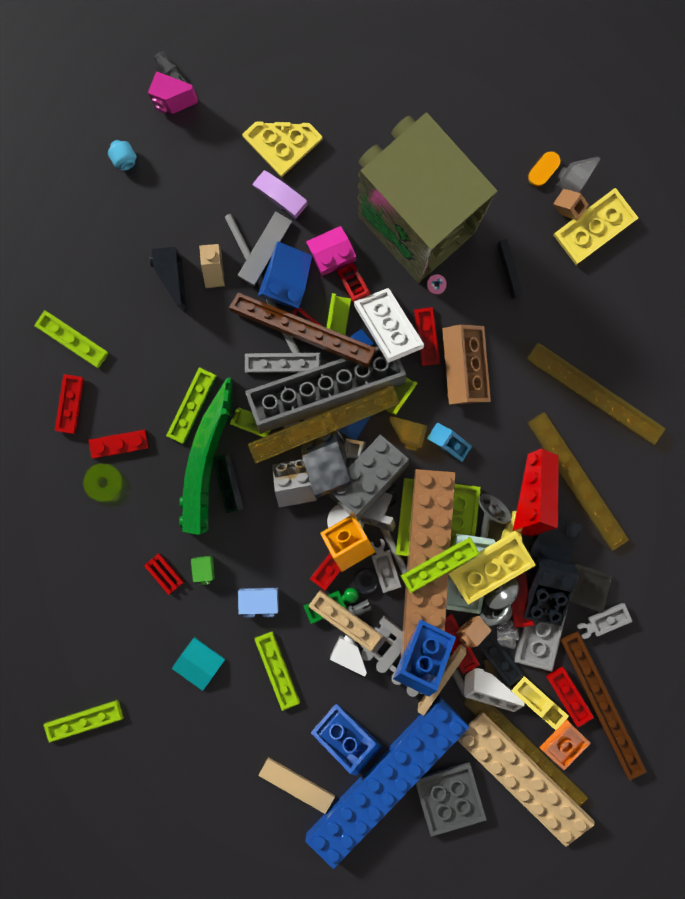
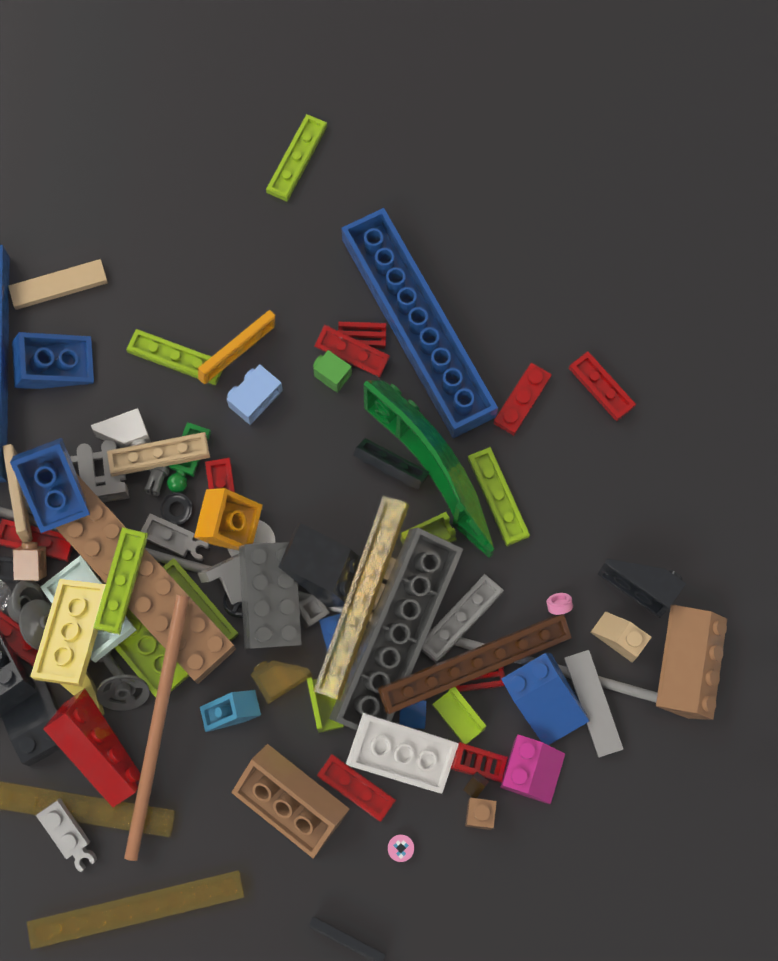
camera: 125 degrees right, 15 degrees down
(71, 339) = (665, 442): lime tile -> none
(91, 482) = (499, 367): clear neon green tile -> none
(126, 547) = (419, 323): none -> blue brick
(179, 569) = (352, 351): none -> red tile
(193, 212) = (691, 662): none -> medium nougat slope
(198, 663) = (250, 295): teal slope -> none
(224, 315) = (559, 603): none -> bright pink tile
(240, 638) = (236, 347): none -> light orange tile
(280, 194) = (637, 770): lavender slope -> none
(282, 143) = (690, 821): light yellow plate -> none
(292, 483) = (336, 518): light grey slope -> none
(367, 273) = (476, 785): none -> dark brown piece
(380, 256) = (480, 813): none -> medium nougat brick
(421, 195) = (500, 882): olive brick -> none
(495, 470) = (156, 728): none -> nougat piece
(593, 467) = (66, 833): none -> light grey plate

